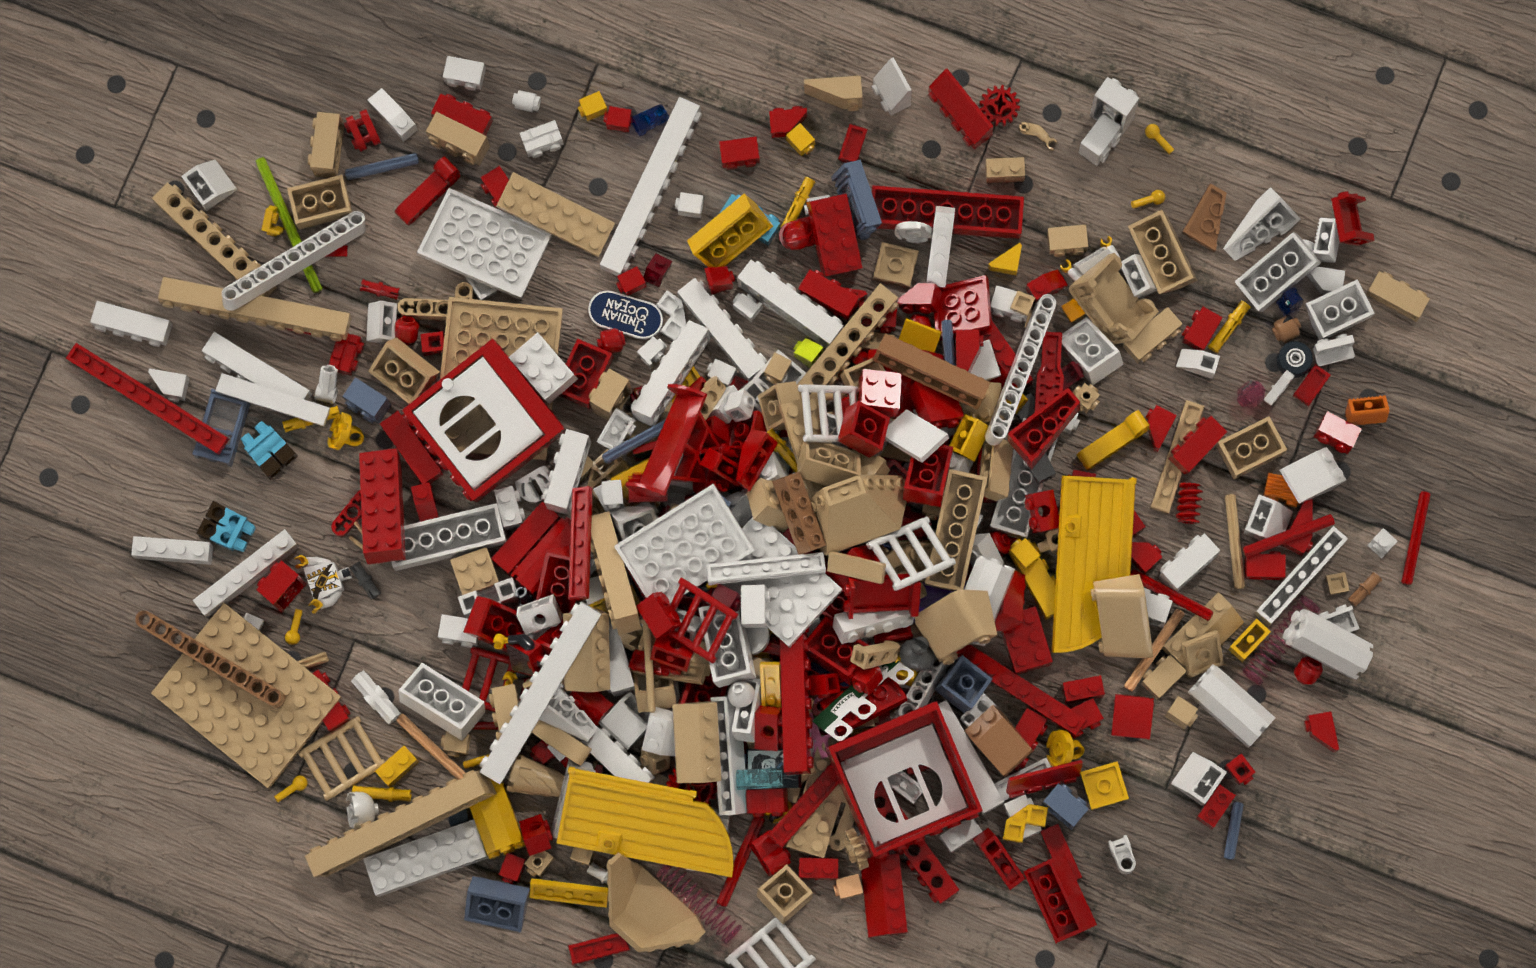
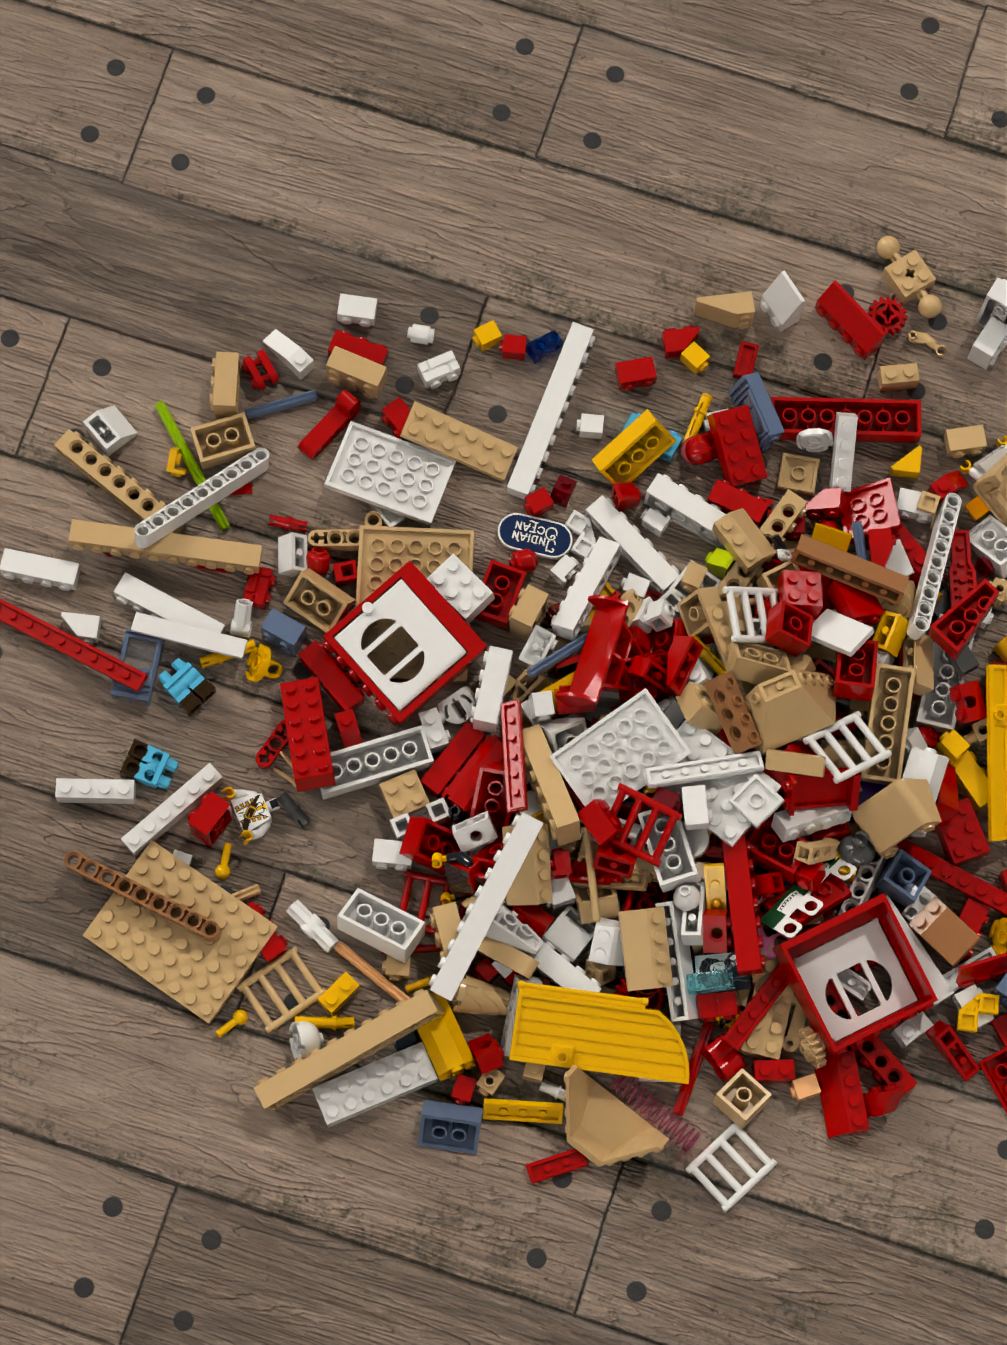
camera: 15 degrees left, 5 degrees down
(619, 652) = (560, 864): none -> red brick
(815, 603) = (756, 801): none -> white tile
(830, 333) = (743, 540): none -> tan slope
(868, 346) = (782, 551): none -> arm
(922, 904) = (882, 1101): none -> red slope
(1023, 77) = (908, 277): none -> tan brick

